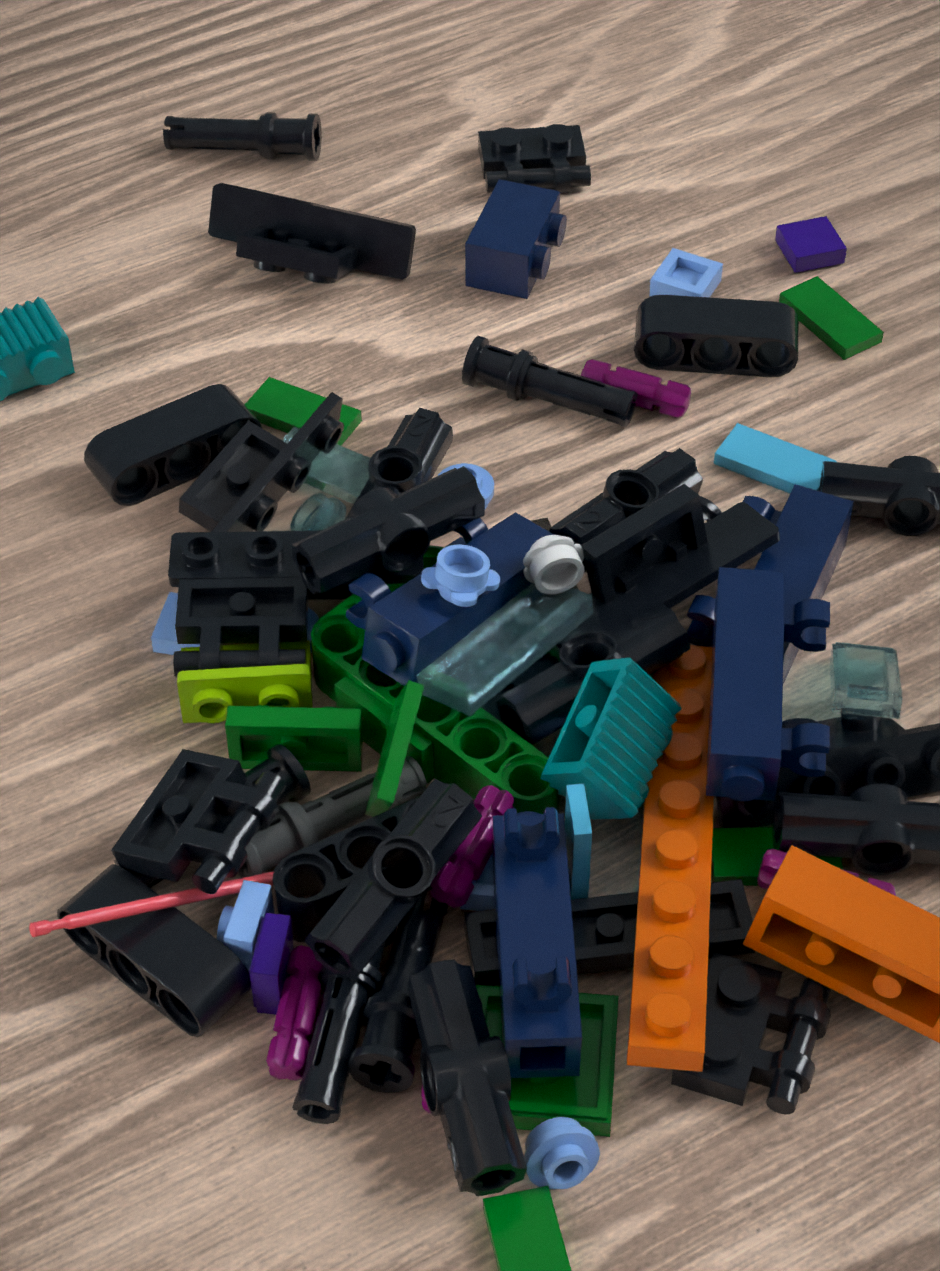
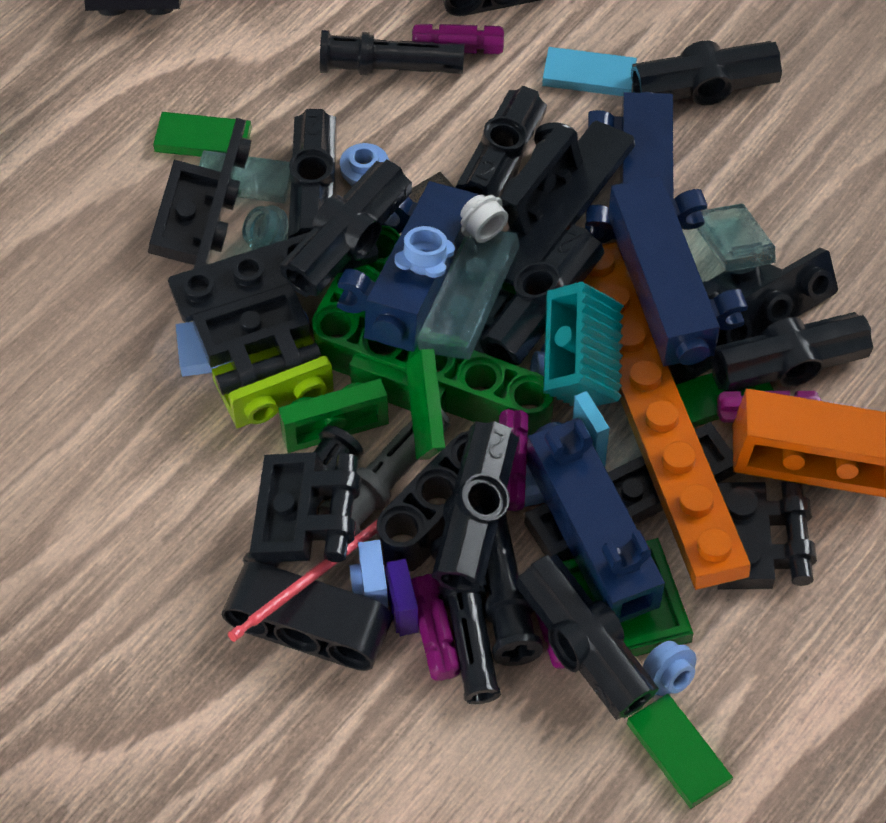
camera: 20 degrees left, 10 degrees up
(166, 444) = (113, 196): black beam -> none

